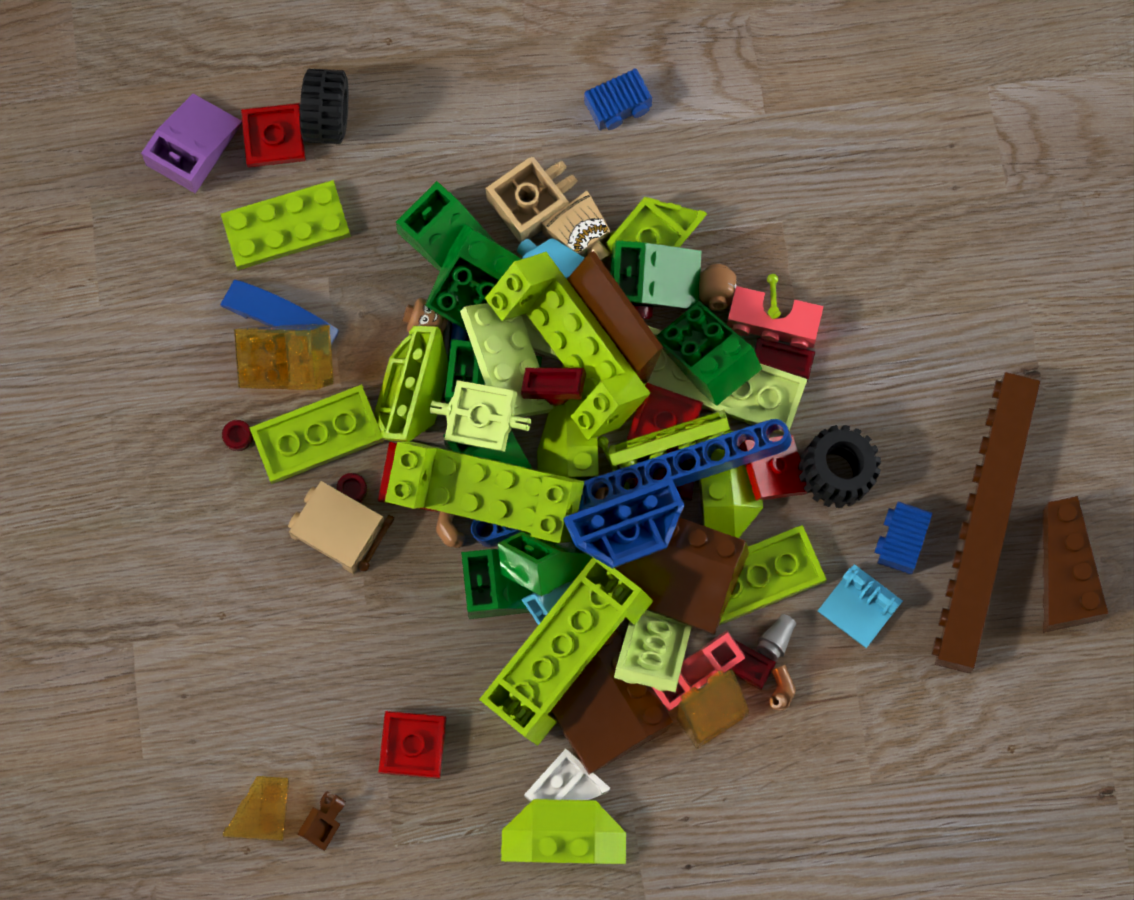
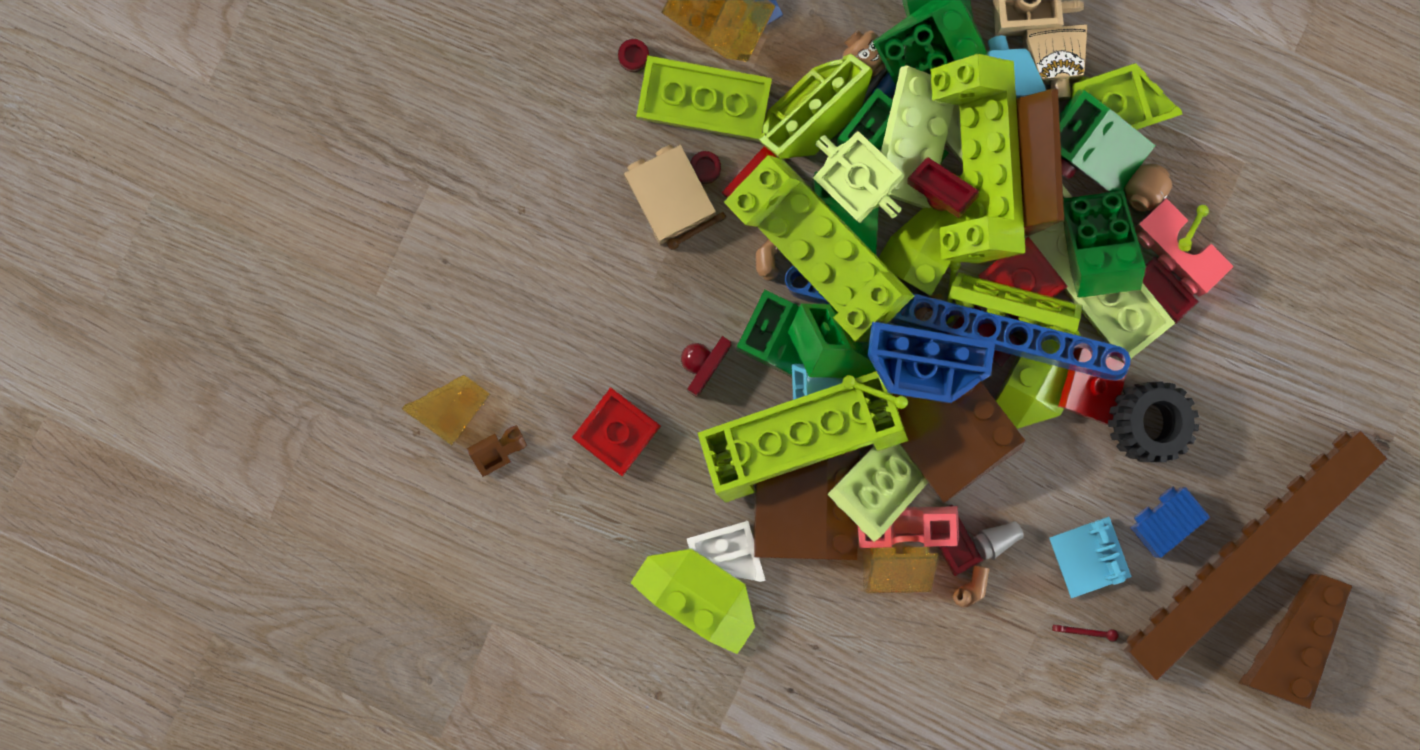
camera: 25 degrees right, 10 degrees up
(447, 644) = (700, 361): none -> dark red tile
(576, 580) = (849, 383): none -> lime hinge
(774, 572) = (1033, 479): lime plate -> none
(918, 657) = (1112, 635): none -> dark red hinge

